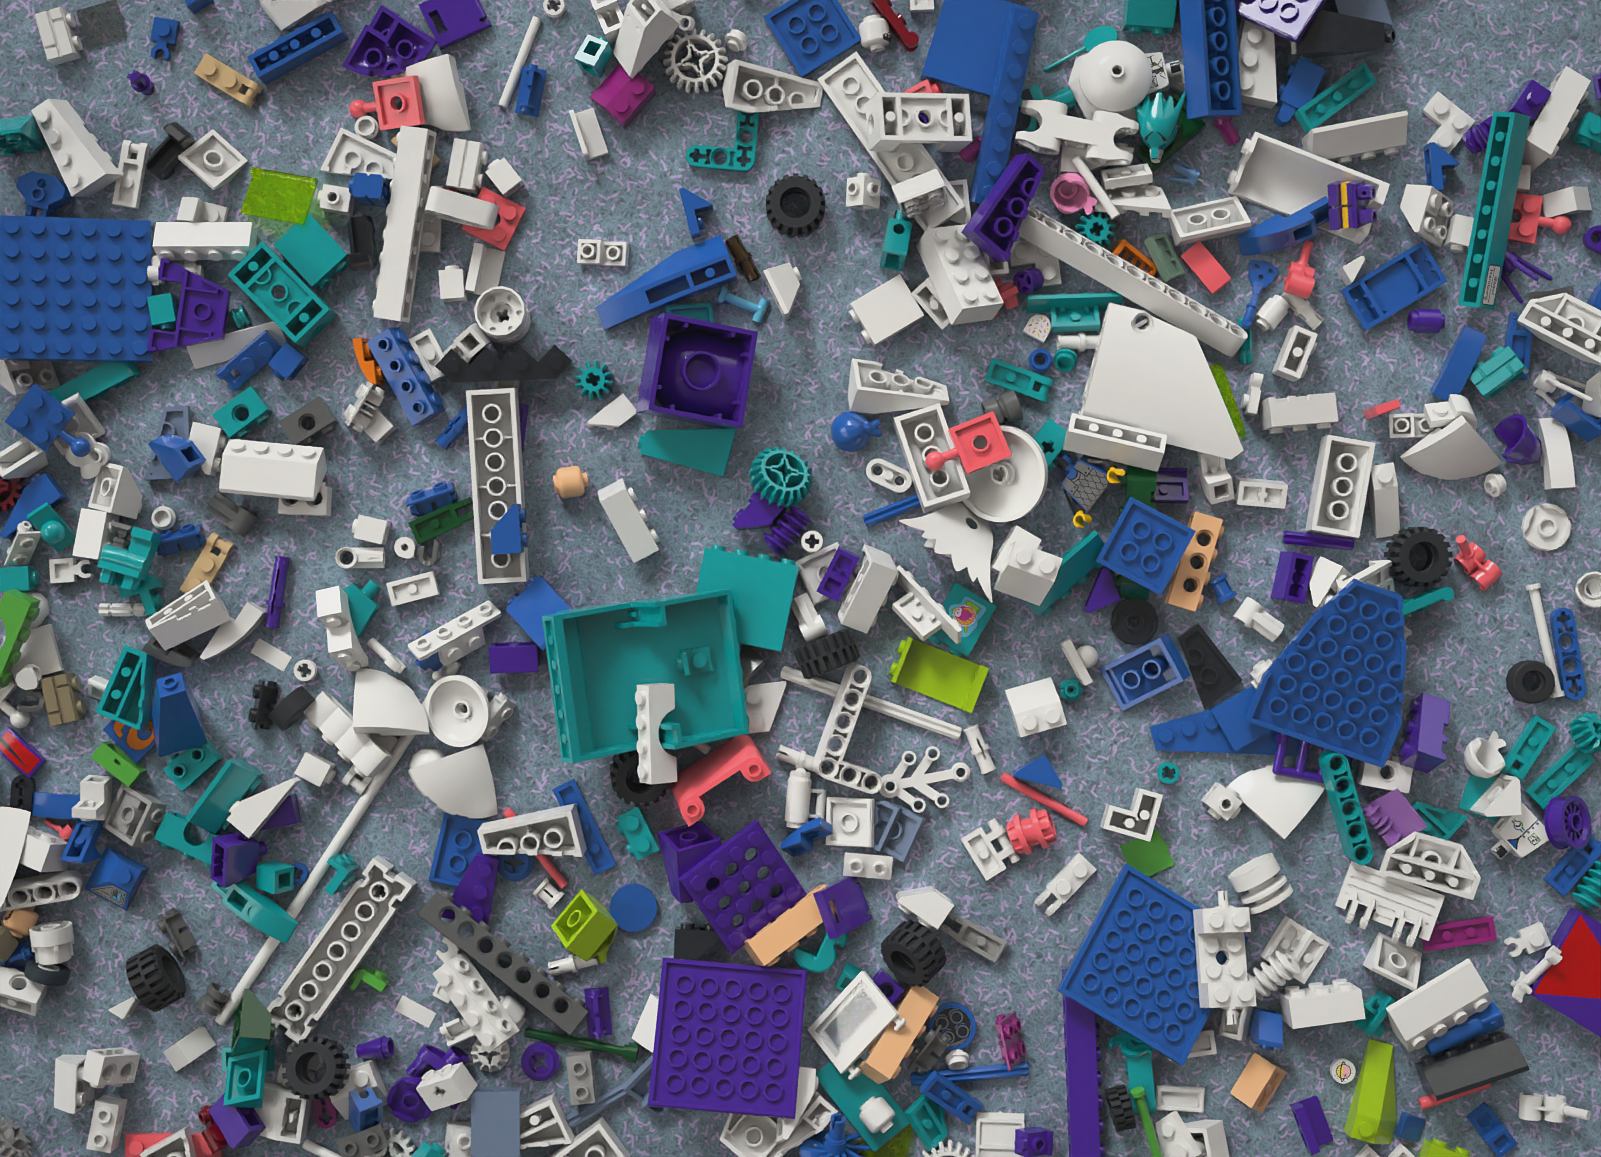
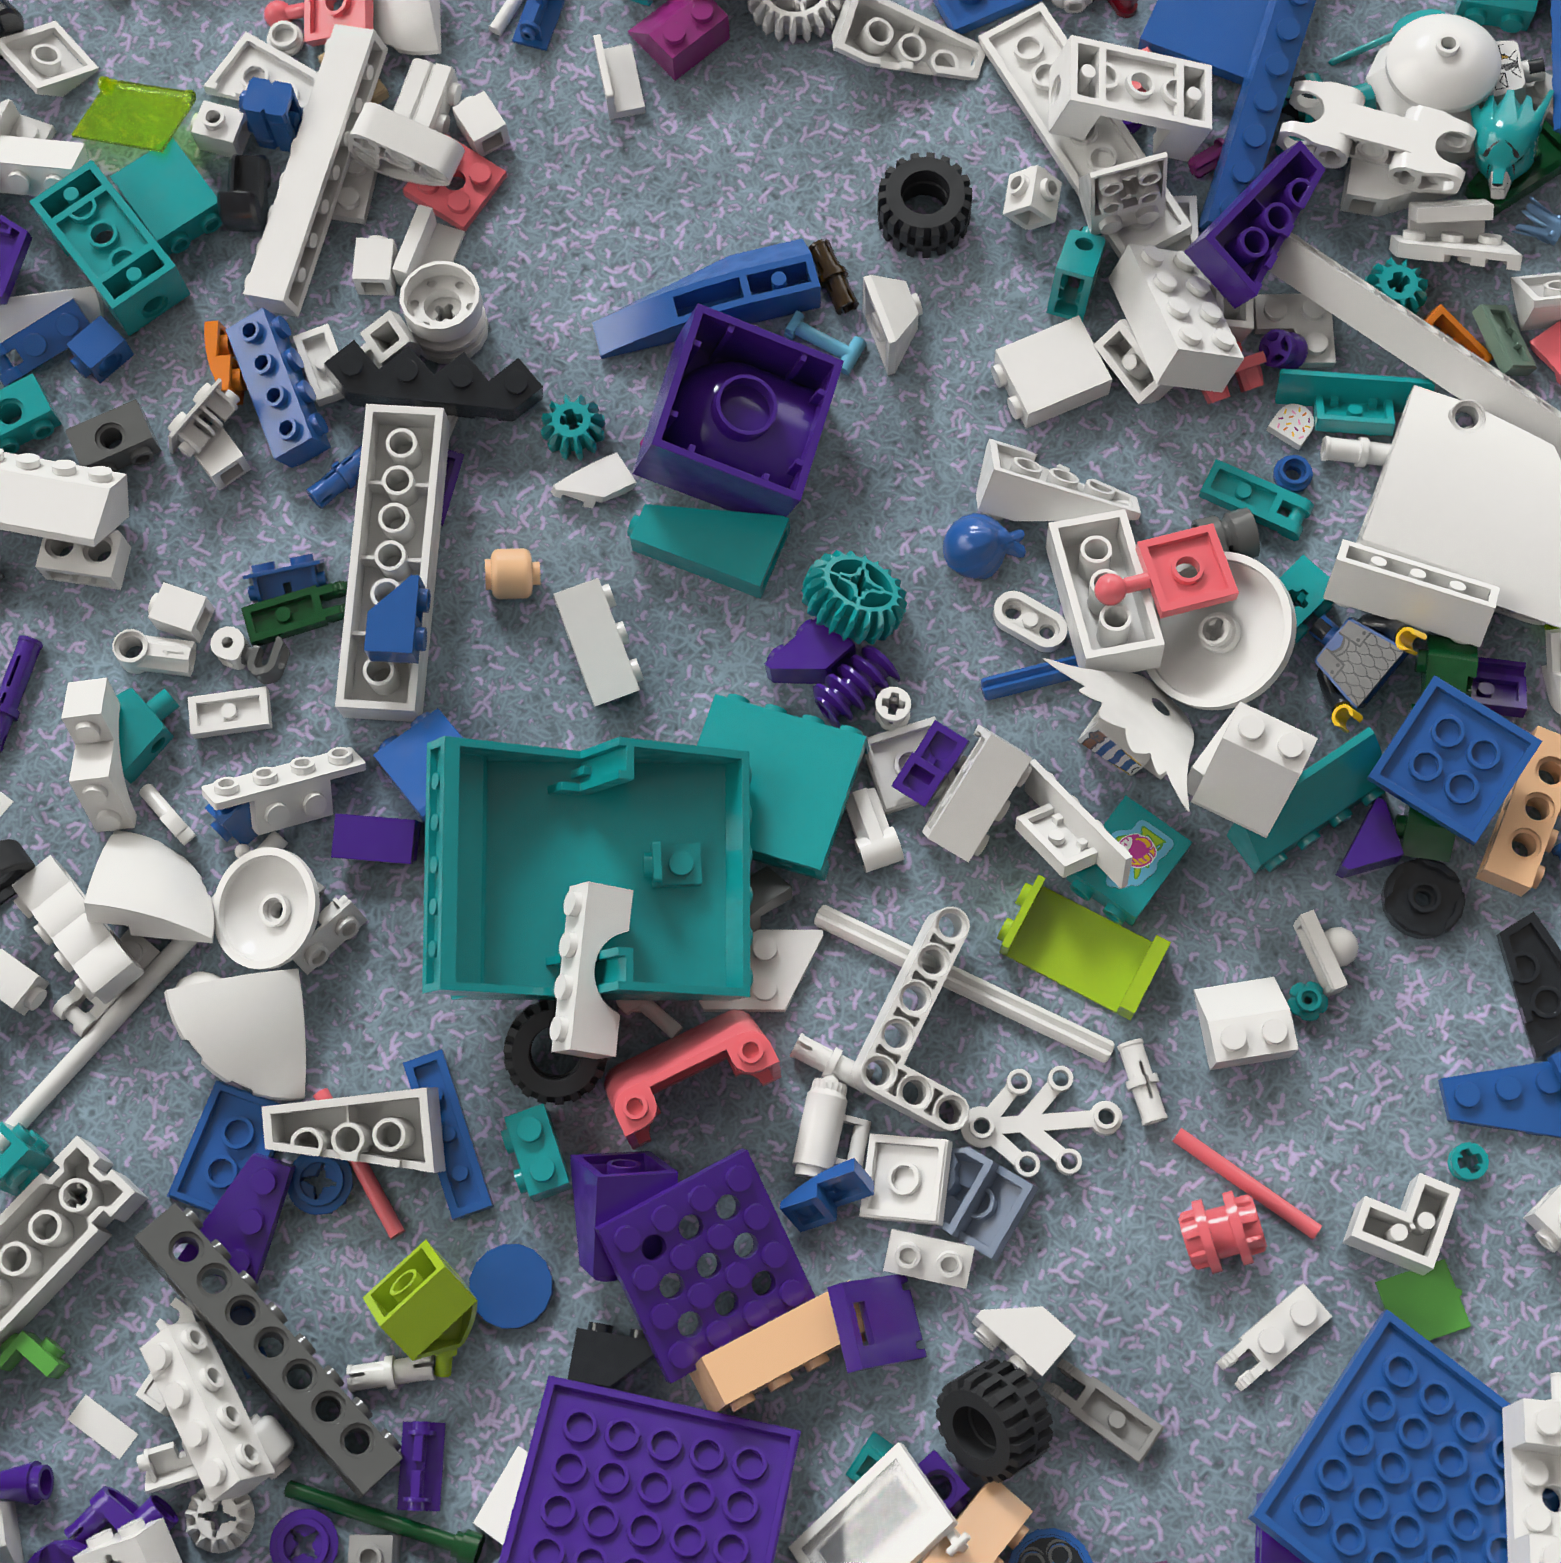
camera: 10 degrees right, 15 degrees down
(241, 316) = (40, 278): teal bush -> none
(299, 674) = (34, 834): white bush -> none
(544, 896) = (362, 1229): white bush -> none
(603, 253) = (609, 247): white slope -> none
(692, 205) = (766, 193): blue slope -> none
(732, 154) = (836, 129): teal beam -> none
(825, 956) = (838, 1408): teal animal -> none
(826, 654) = (897, 884): black tyre -> none
(983, 852) = (1135, 1264): white plate -> none
(1039, 771) = (1244, 1132): blue slope -> none
(1065, 359) = (1334, 475): teal plate -> none
(1071, 194) = (1361, 230): bright pink hat -> none
(1095, 187) = (1402, 218): white bar -> none
(1145, 672) = (1437, 983): blue slope -> none

